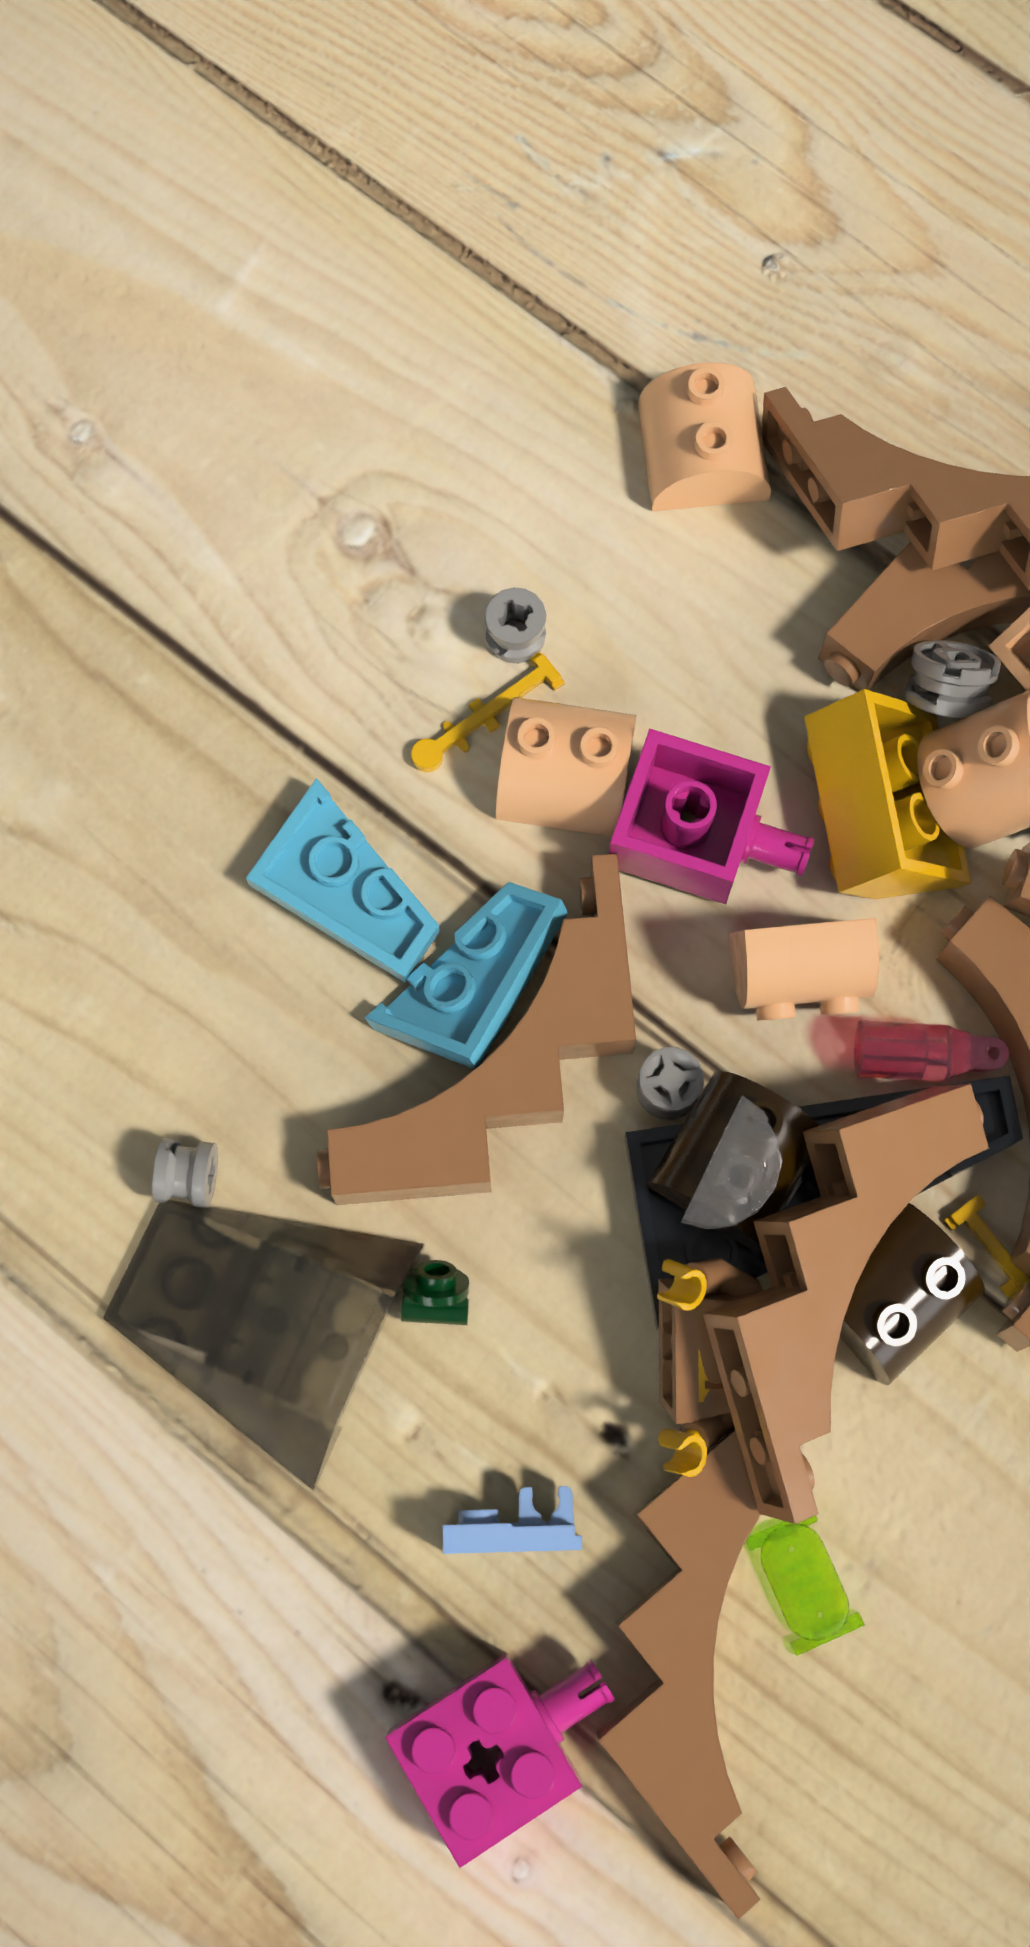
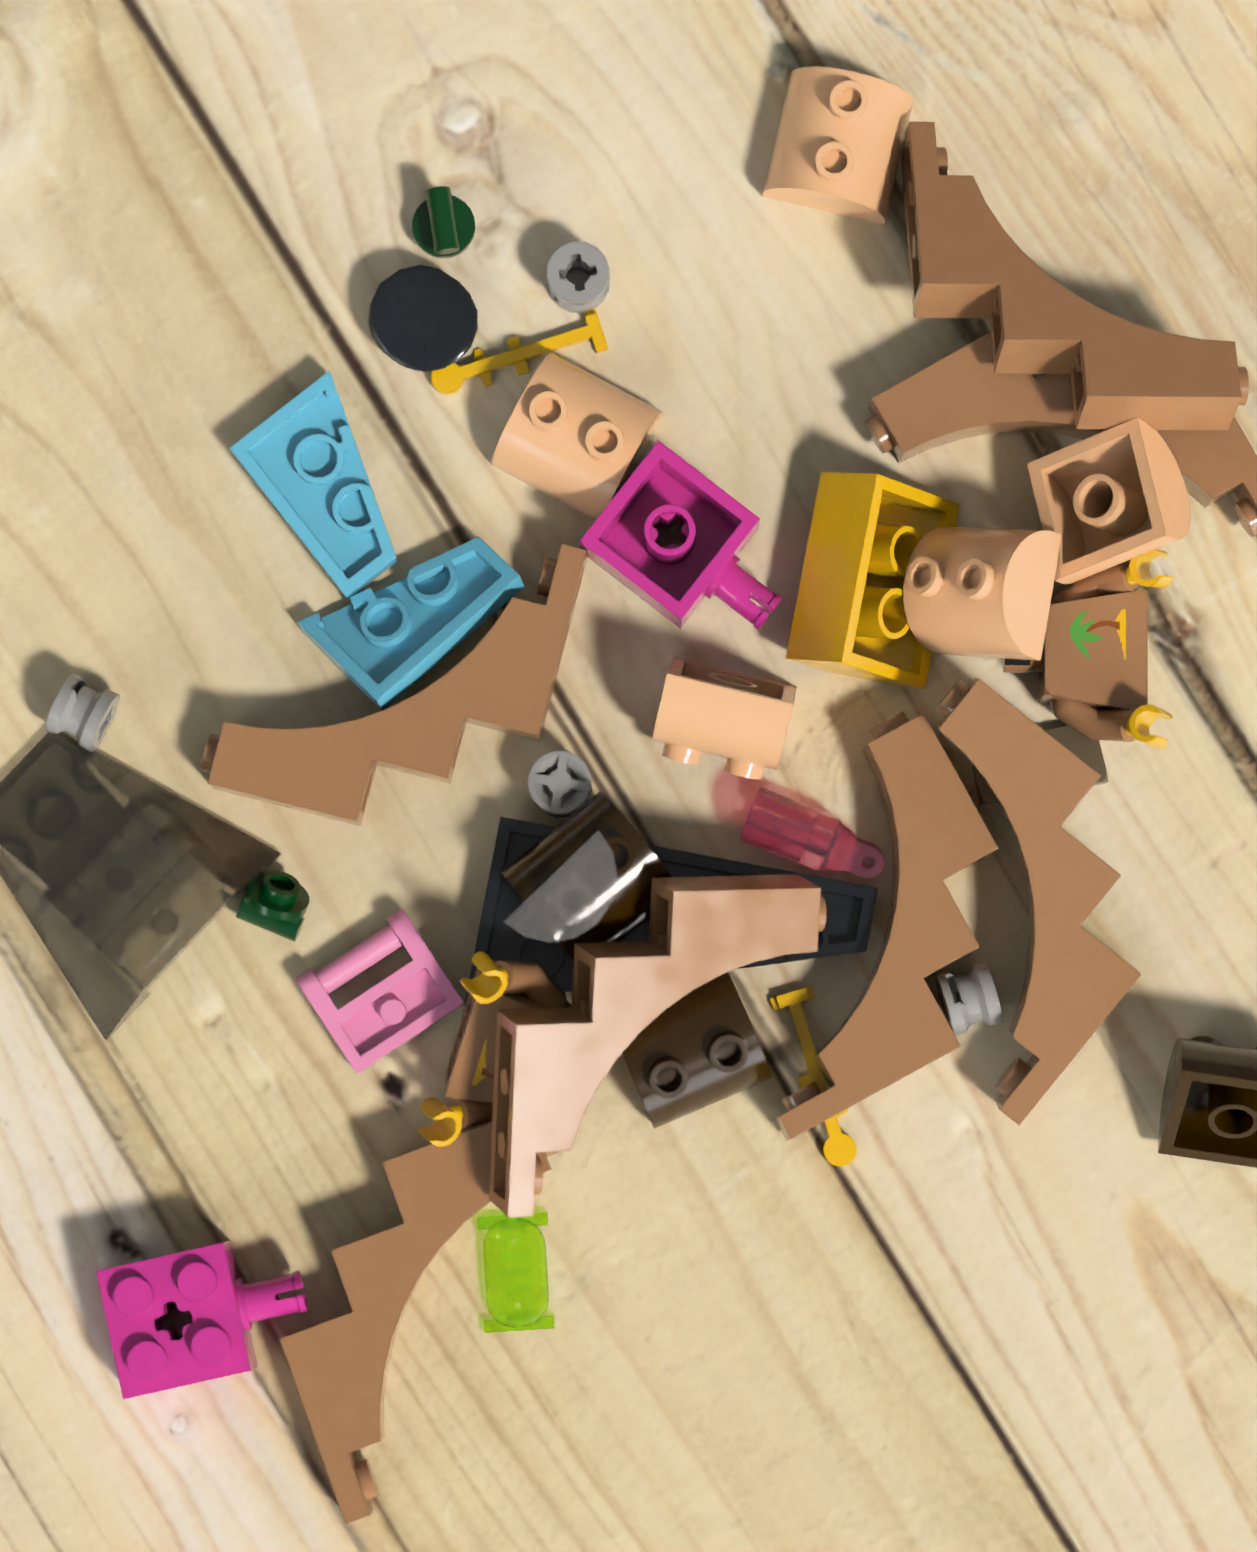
camera: 20 degrees right, 10 degrees up
(375, 620) = (443, 224): none -> dark green plate
(385, 707) = (423, 318): none -> black piece
(481, 1533) = (242, 1130): light blue plate -> none
(587, 1357) = (391, 1009): none -> bright pink plate
(951, 678) = (981, 481): light grey wheel -> none

